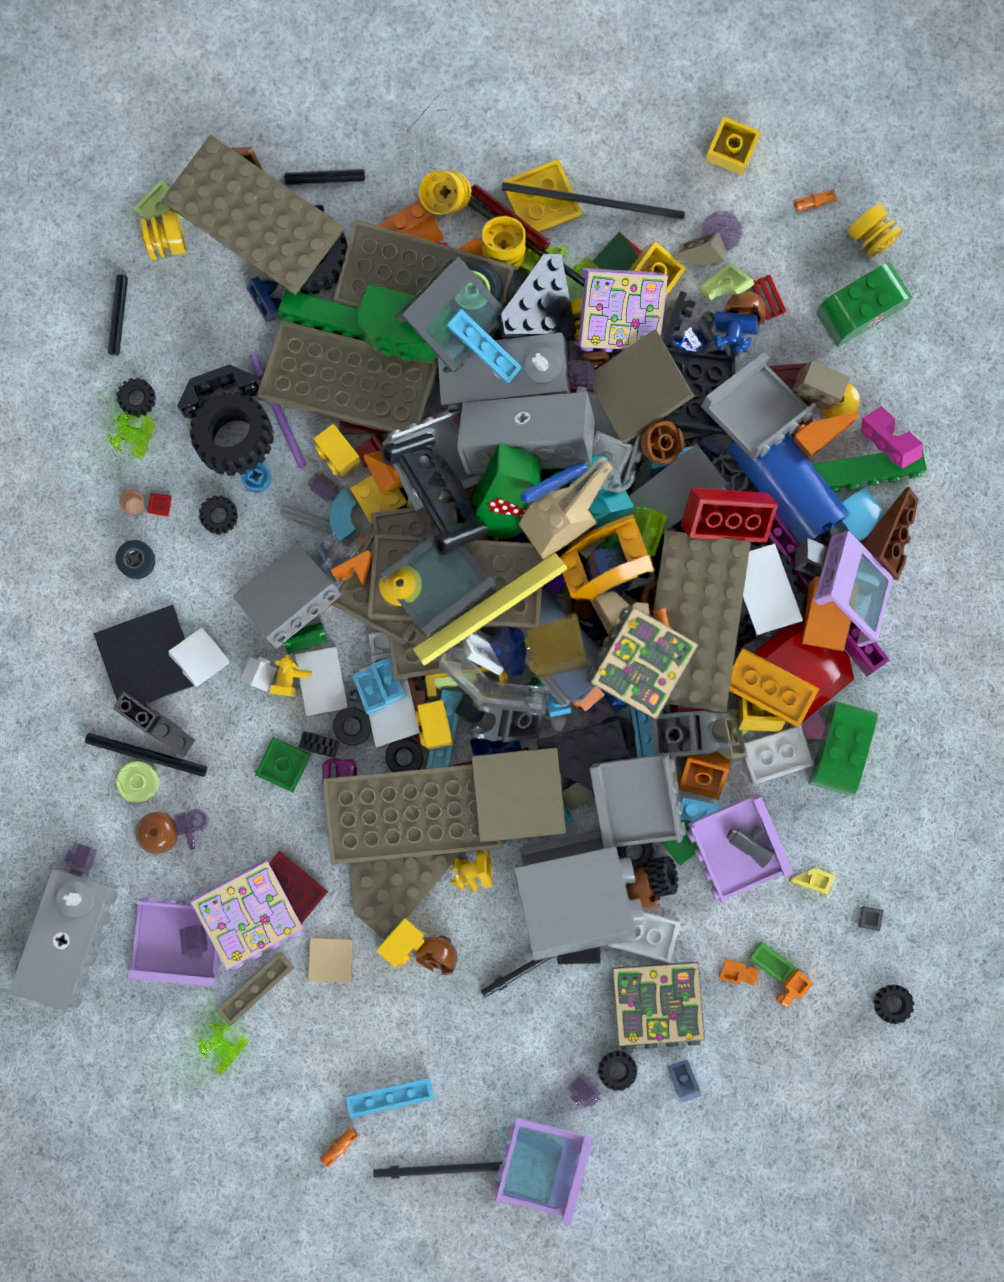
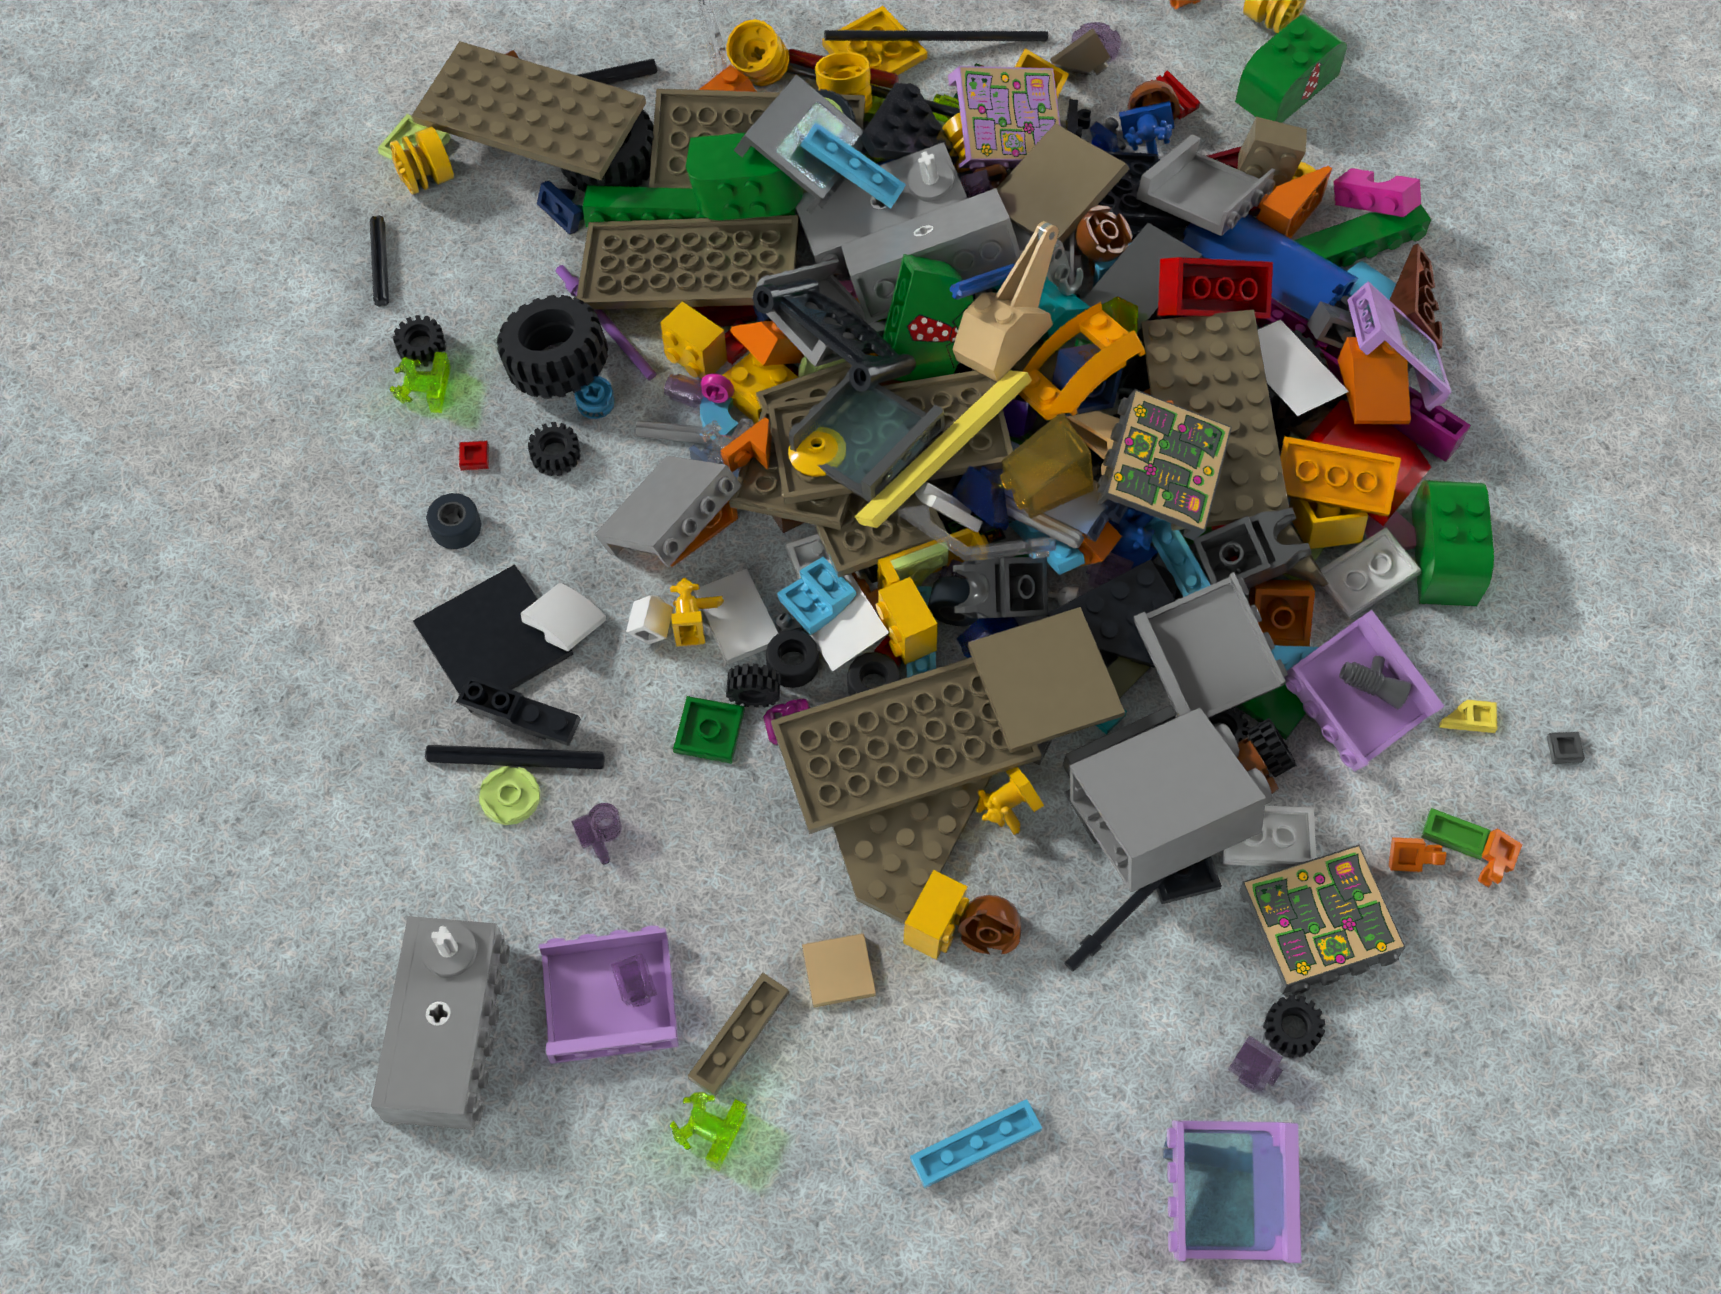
camera: 15 degrees left, 20 degrees down
(80, 858) = (447, 903): clear purple brick -> none
(131, 501) = (435, 455): nougat piece -> none
(156, 833) = (550, 854): dark orange cylinder -> none
(208, 382) = (515, 291): black slope -> none
(246, 915) = (705, 926): panel -> none
(299, 887) = (757, 883): dark red plate -> none
(306, 638) = (704, 567): green hinge -> none
(339, 1146) = (919, 1234): orange pin -> none
(344, 497) = (716, 388): none -> dark pink hat
(395, 1172) = (1013, 1253): black bar -> none
(684, 1081) = (1394, 1017): sand blue slope -> none
(726, 281) = (1120, 83): yellowish green tile -> none
(903, 1013) = (1654, 836): black tyre -> none

